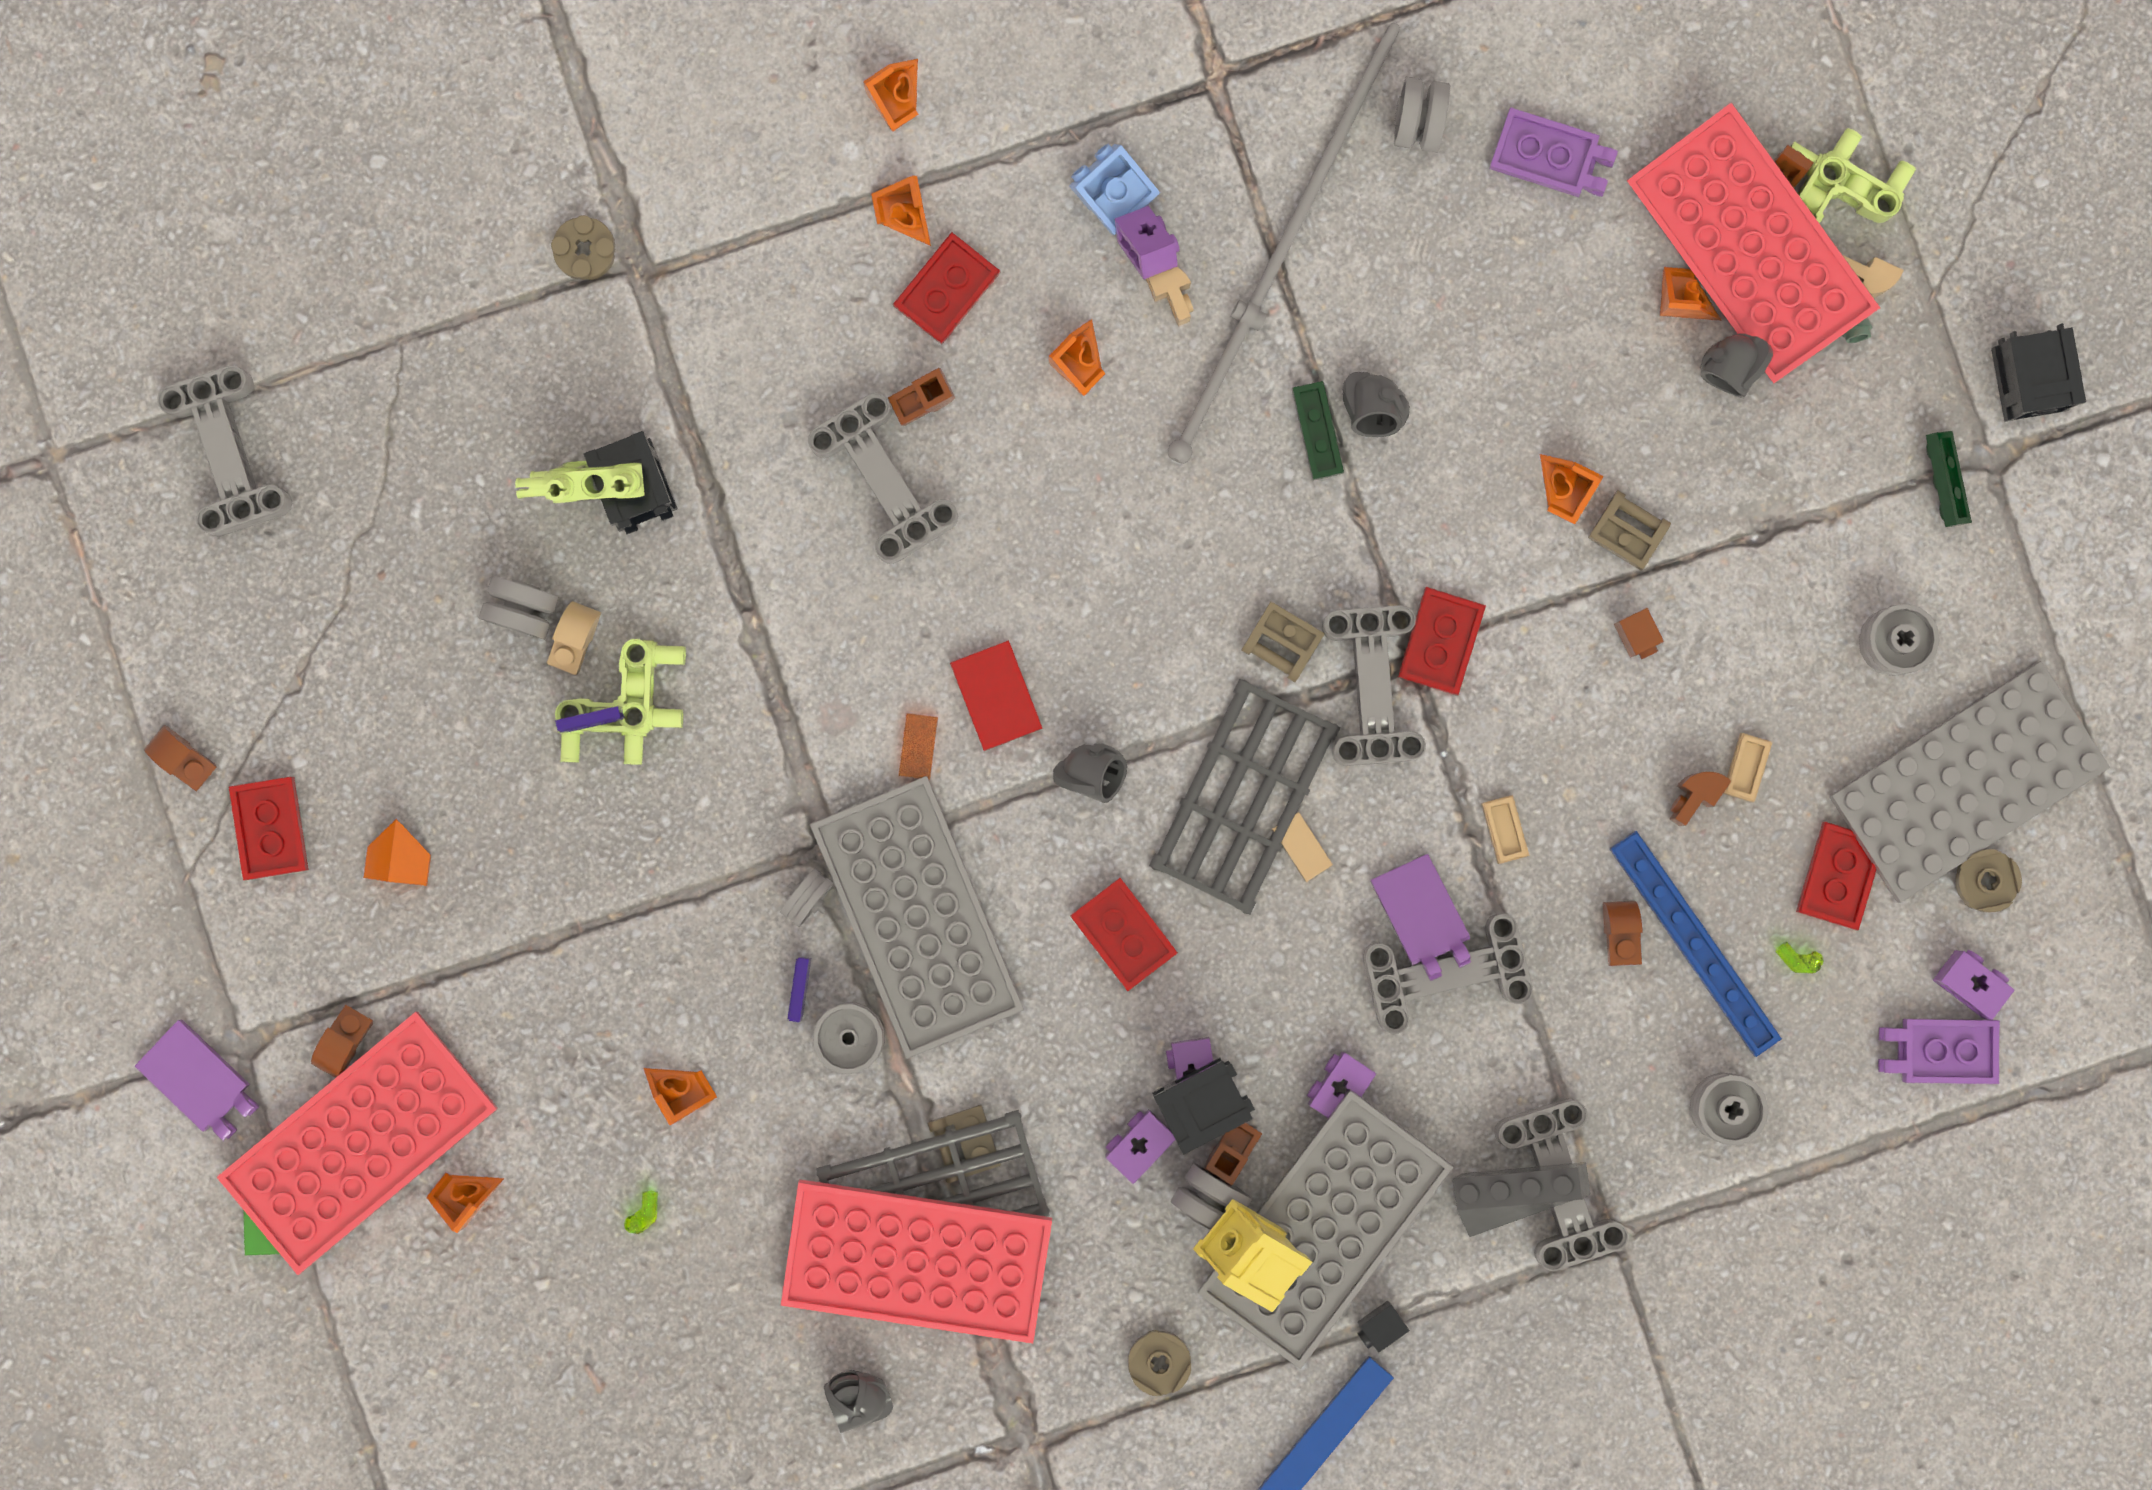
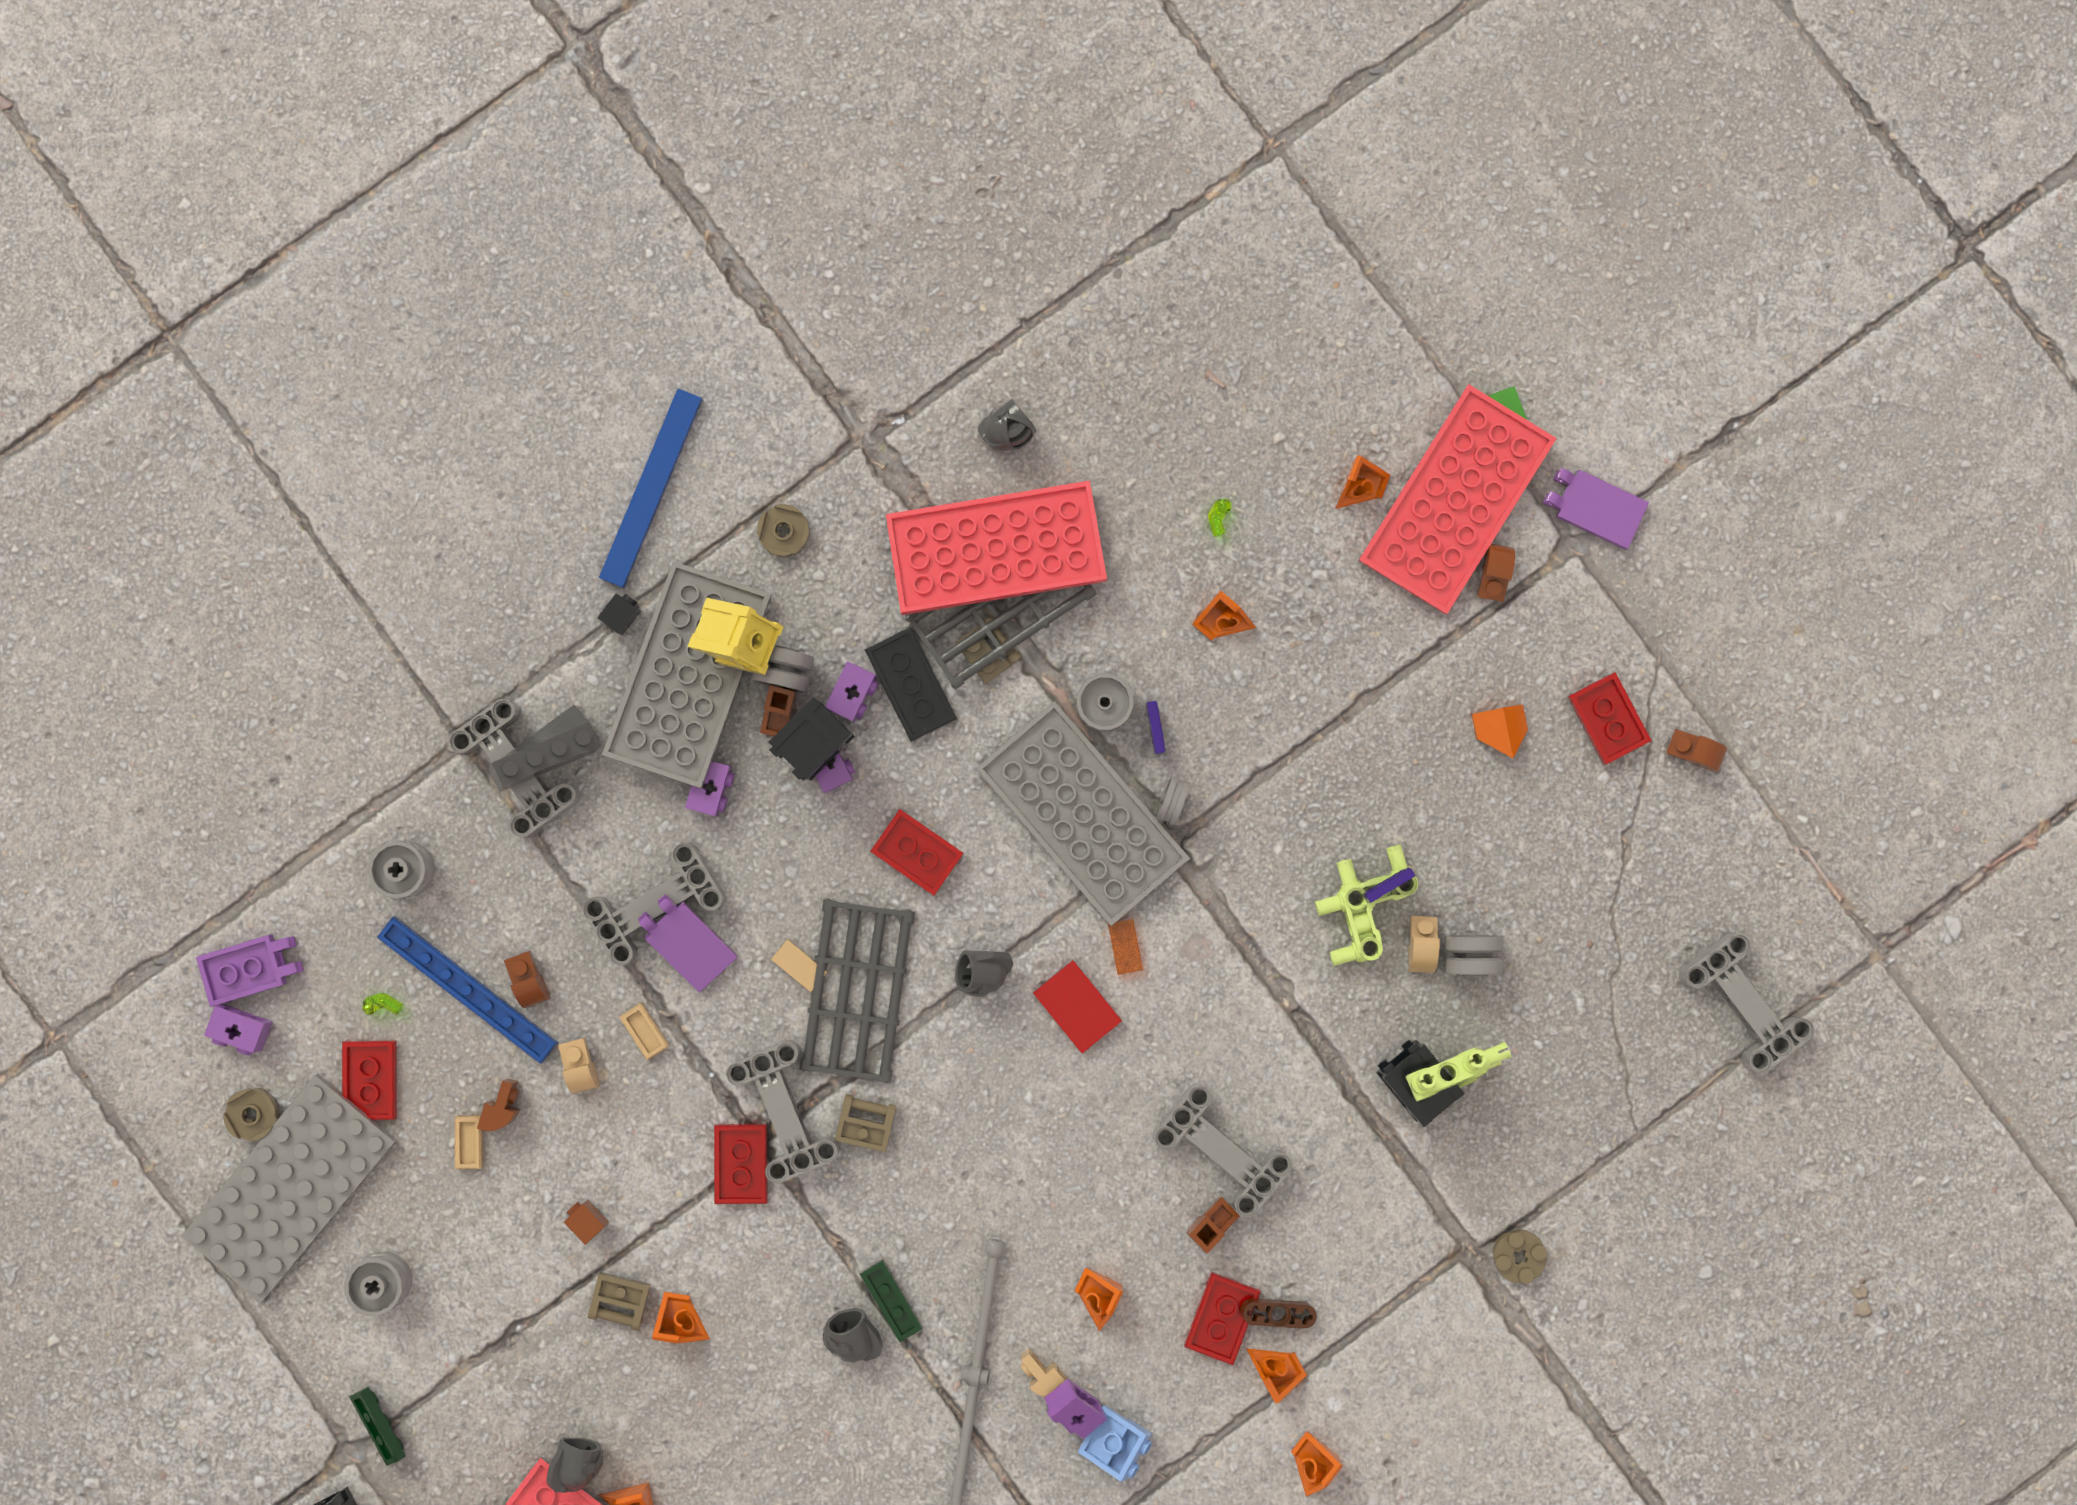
camera: 165 degrees right, 0 degrees up
(904, 273) = (1259, 1319): none -> reddish brown beam
(1068, 1132) = (910, 684): none -> black tile
(1593, 813) = (578, 1068): none -> tan brick

